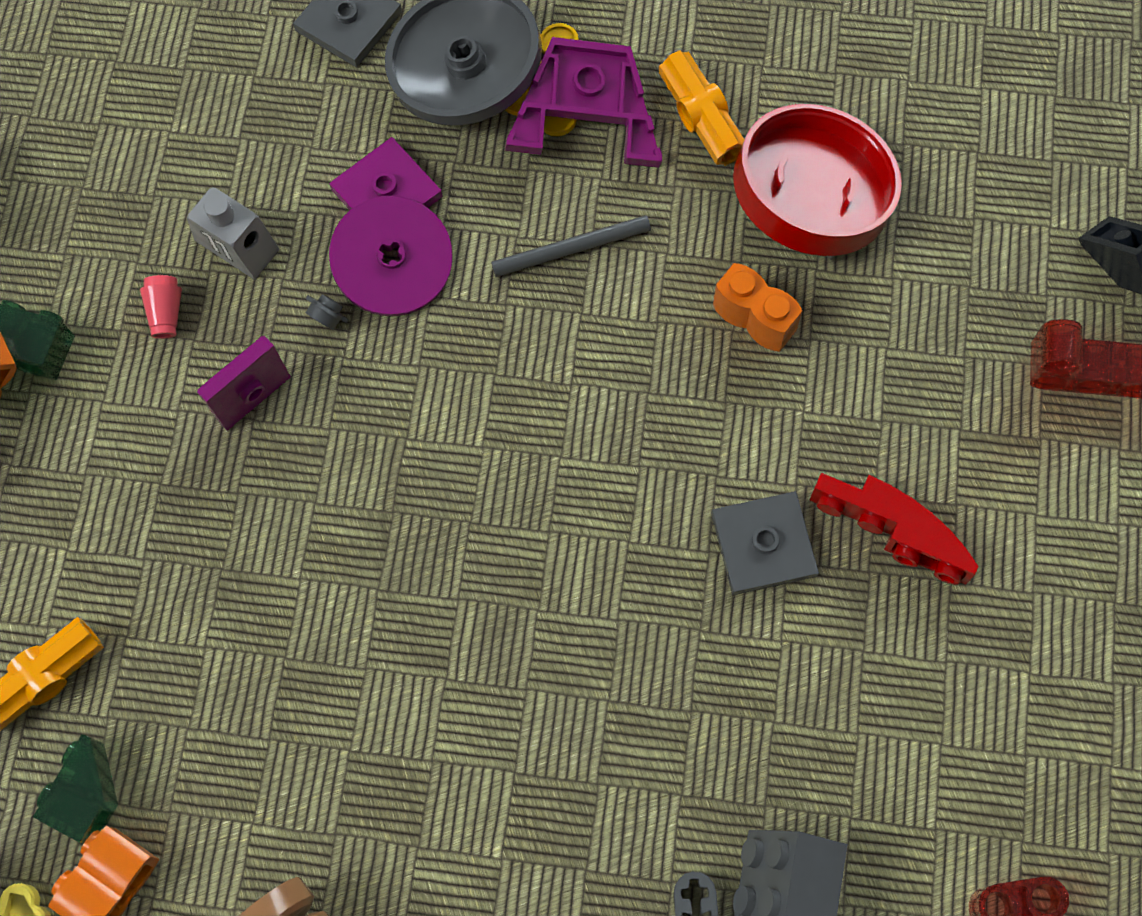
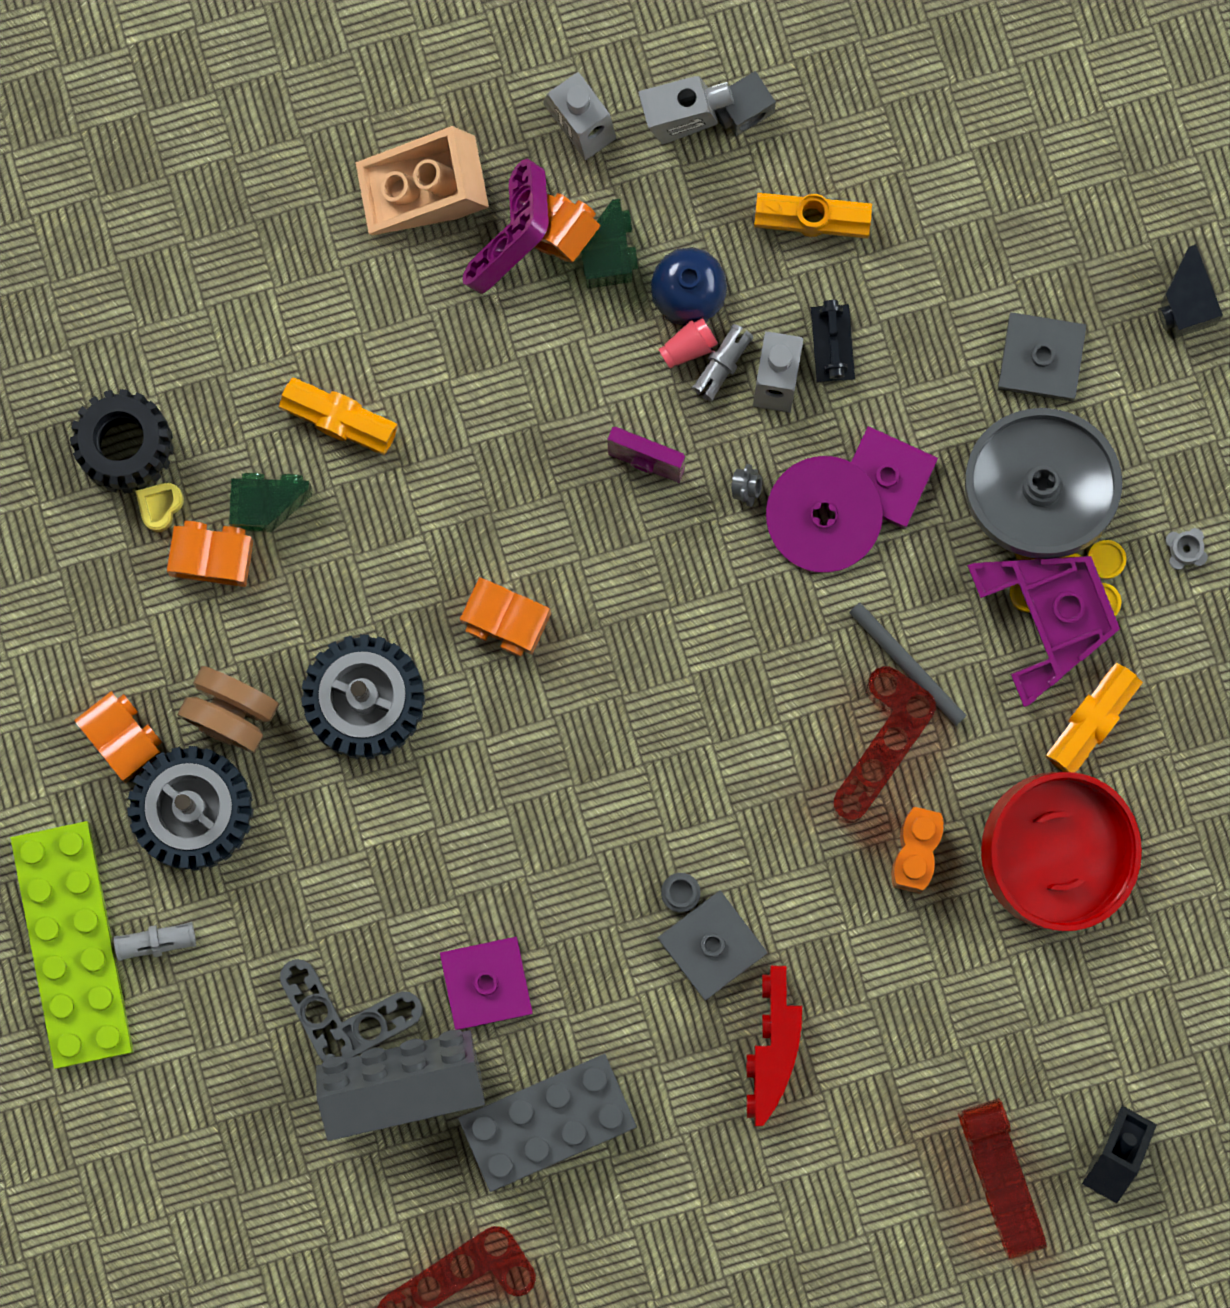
camera: 65 degrees right, 10 degrees up
(93, 161) = (838, 219): none -> light orange piece
(106, 282) = (688, 286): none -> dark blue cylinder
(197, 284) = (722, 362): none -> light grey pin
(240, 182) = (832, 342): none -> black hinge
(332, 597) = (504, 616): none -> orange brick
(339, 782) = (363, 696): none -> wheel
(641, 302) = (878, 751): none -> clear red beam
(696, 549) = (680, 892): none -> dark grey plate
(704, 792) = (486, 983): none -> magenta plate
(886, 790) = (547, 1122): none -> dark grey brick

